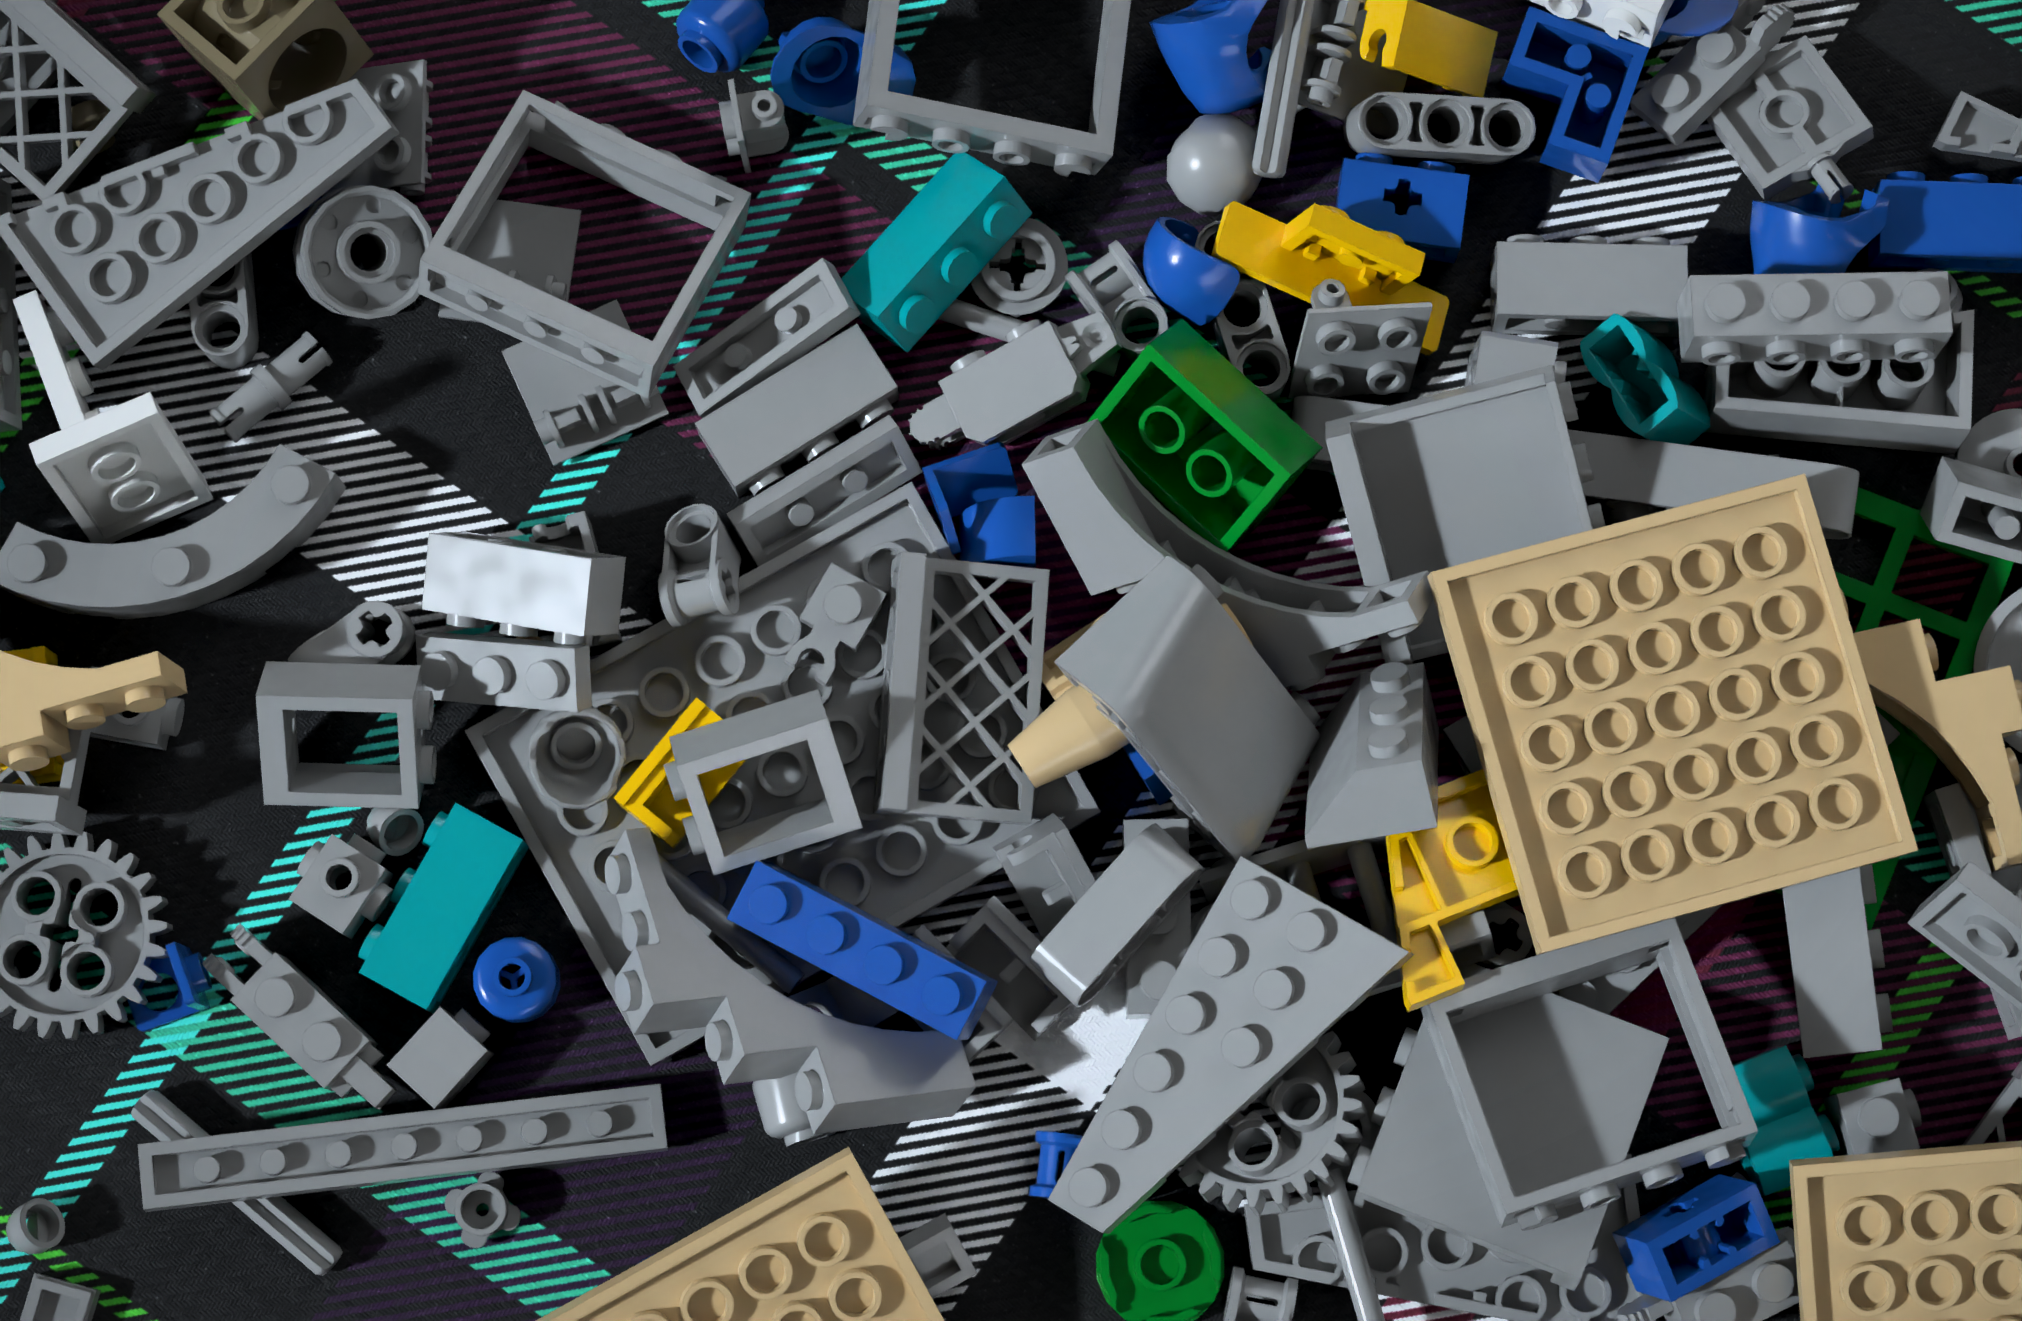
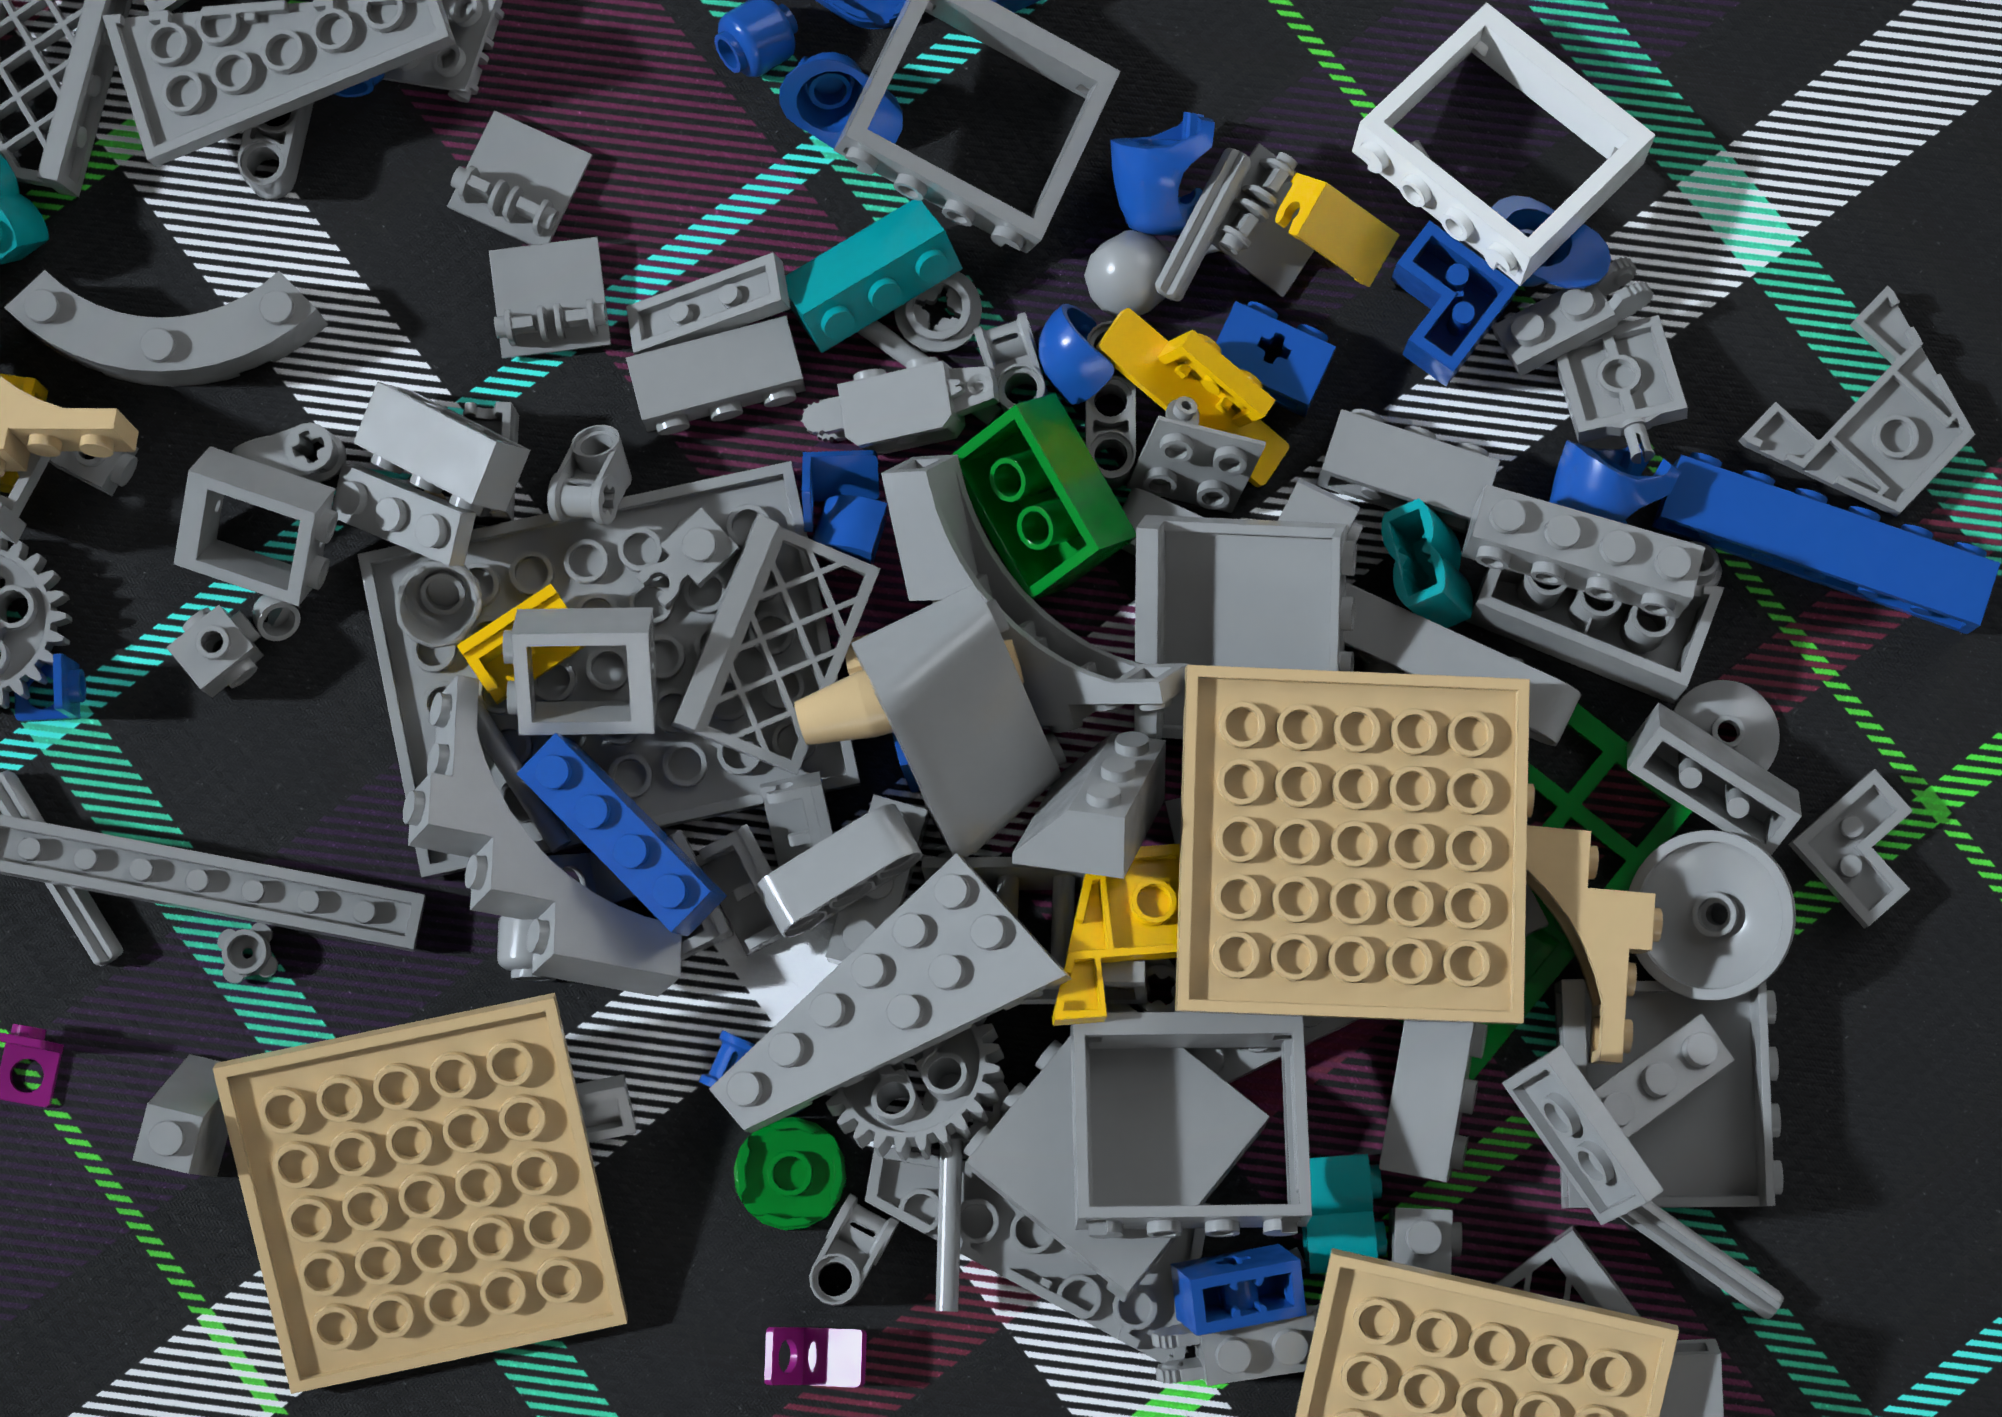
camera: 20 degrees right, 0 degrees up
(110, 466) = (134, 246): white piece -> none
(270, 386) = (291, 223): light grey pin -> none
(304, 1021) = (149, 752): light grey hinge -> none
(325, 243) = (434, 139): light grey wheel -> none
(442, 906) = (292, 694): teal brick -> none
(443, 1056) = (254, 817): light grey brick -> none
(523, 1002) = (347, 785): blue head -> none
(543, 318) = (527, 235): light grey window -> none
(753, 123) = (752, 125): light grey hinge -> none
(825, 491) = (717, 447): light grey plate -> none
(1467, 121) = (1350, 296): light grey beam -> none

